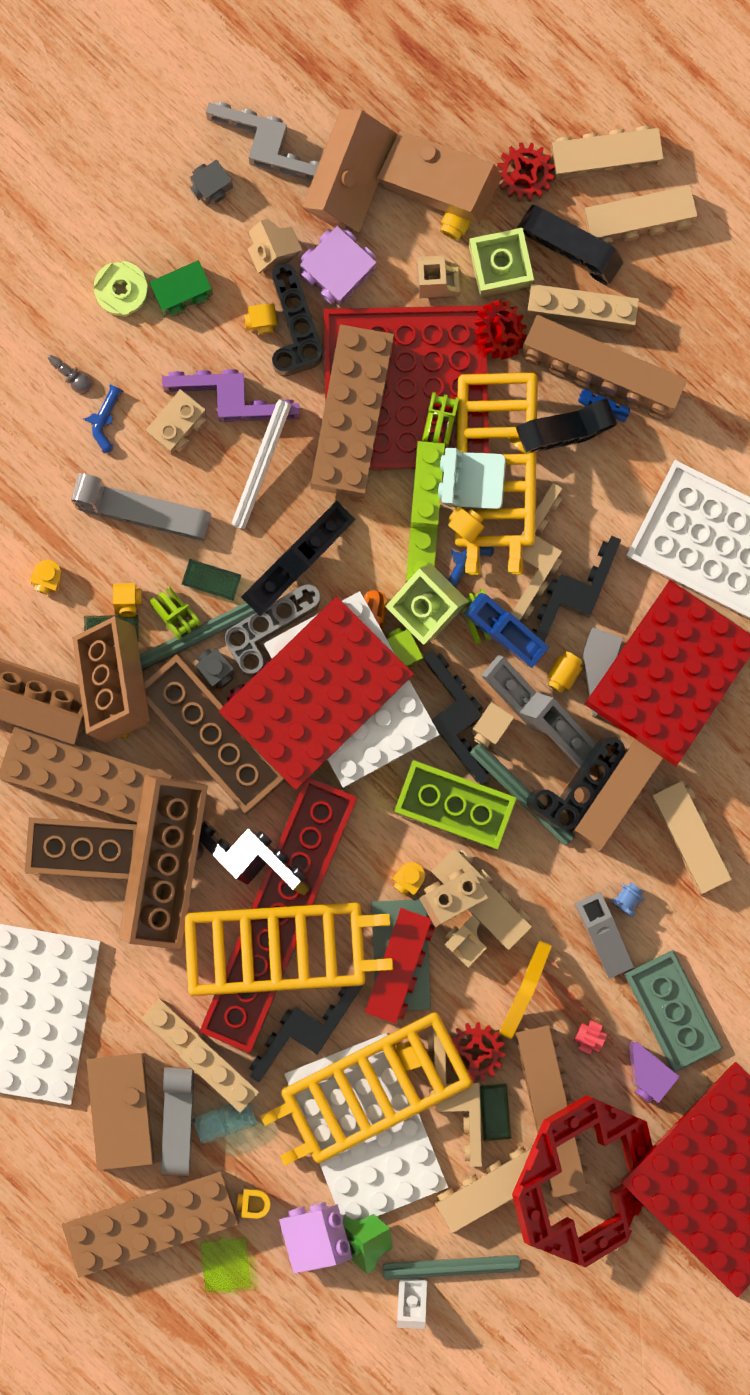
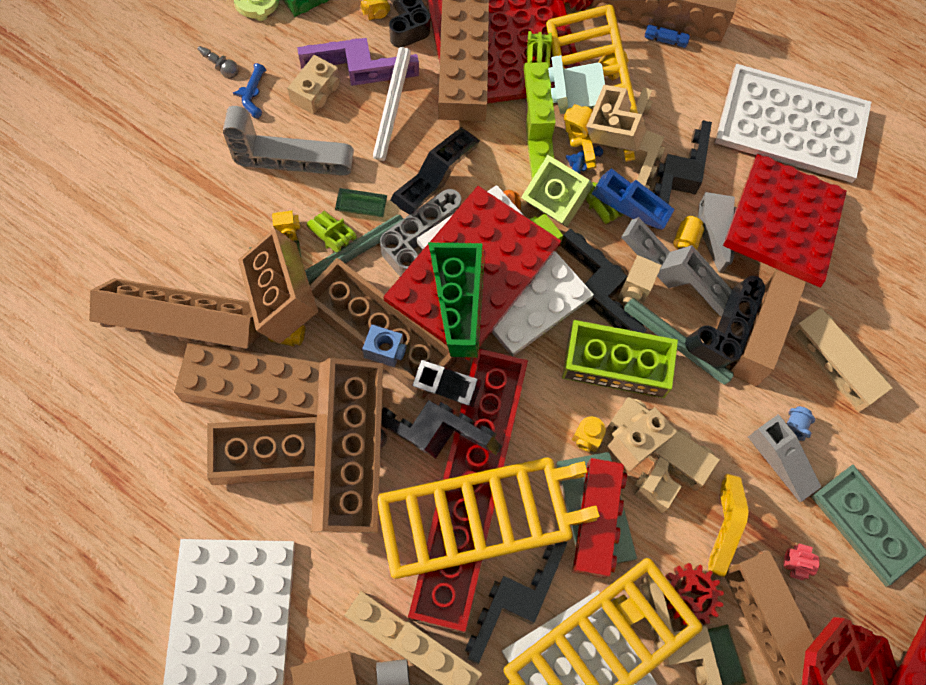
camera: 15 degrees left, 15 degrees down
(46, 577) = (211, 217): yellow plate -> none
(203, 756) = (379, 336): none -> medium blue brick
(215, 668) = (375, 270): dark grey brick -> none
(269, 811) = (447, 383): none -> black brick
(294, 724) = (459, 285): none -> green wedge
(495, 536) = (613, 123): none -> tan brick
(566, 428) = (648, 46): black beam -> none
(649, 1074) = (873, 587): medium lavender slope -> none

